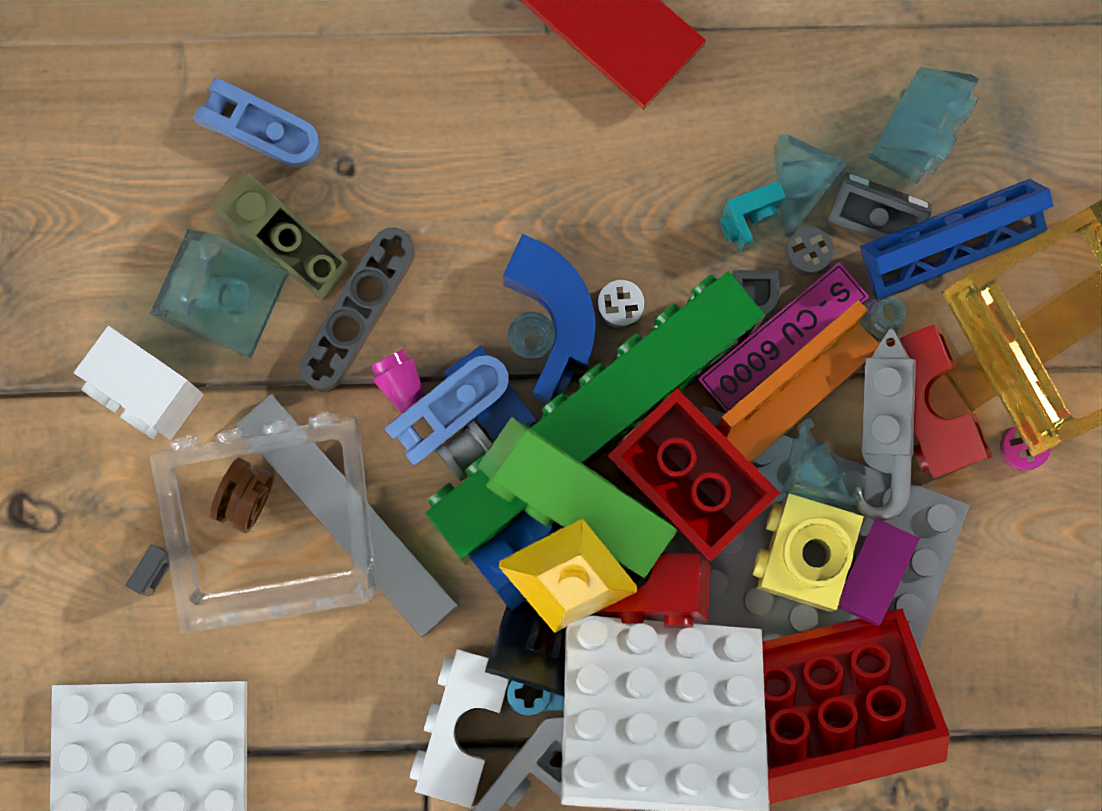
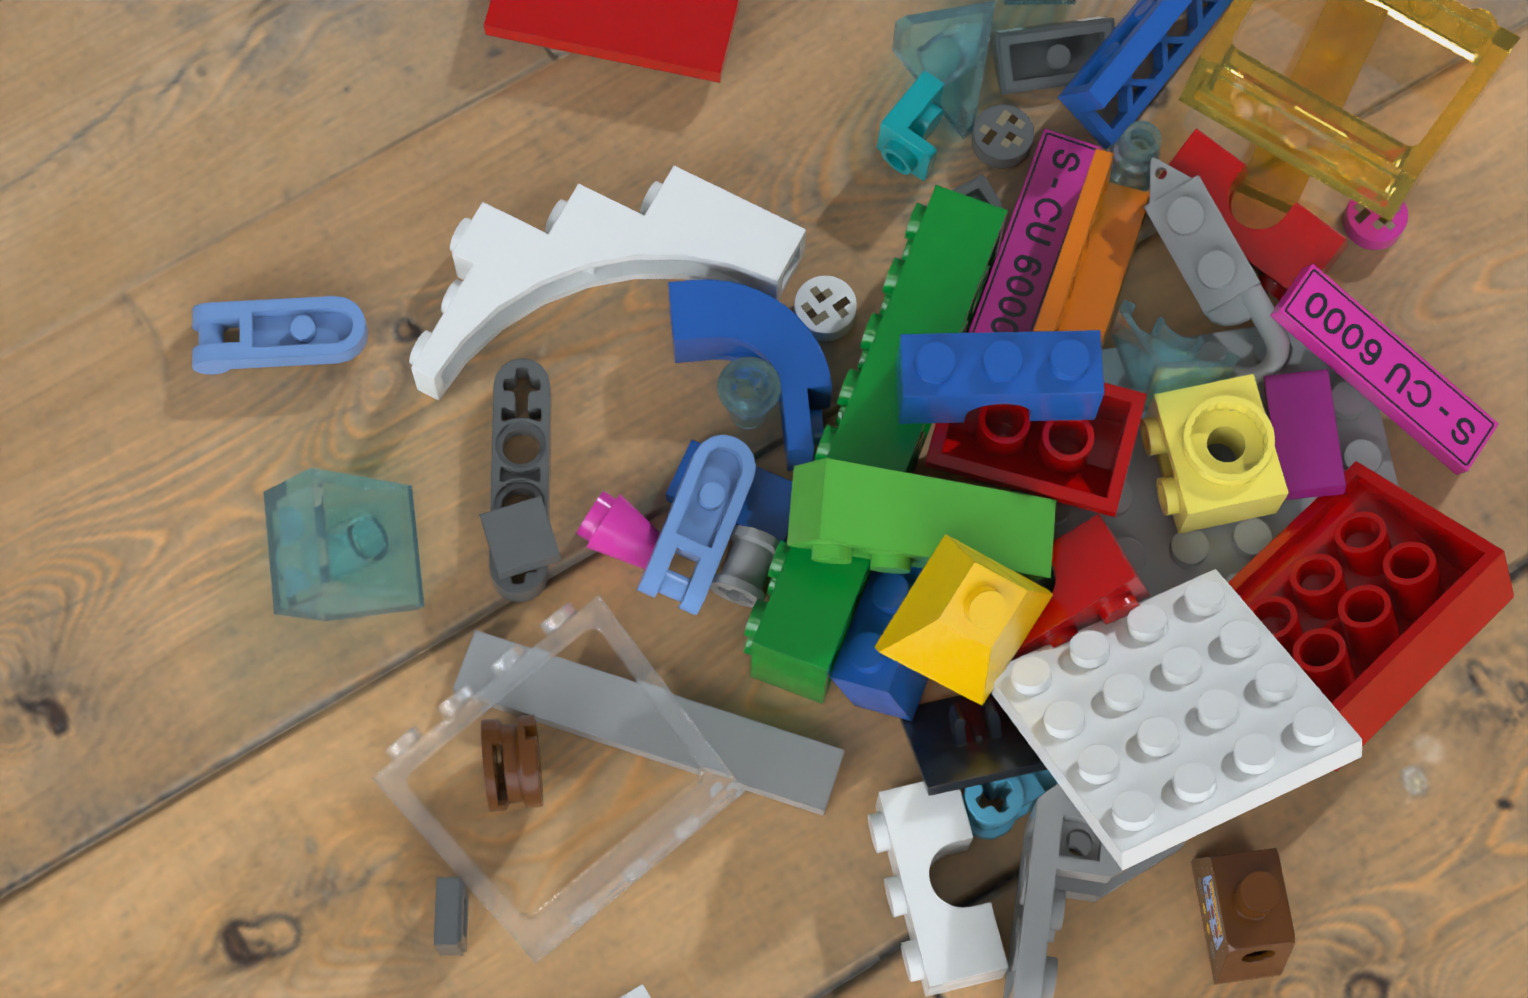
camera: 30 degrees left, 10 degrees down
(130, 377) = (311, 698): white brick -> none
(278, 233) = (372, 440): olive slope -> none
(330, 351) = (520, 537): none -> dark grey tile
(493, 175) = (591, 241): none -> white arch
(685, 428) = (1045, 371): none -> blue arch
(960, 557) = (1384, 369): none -> dark pink tile

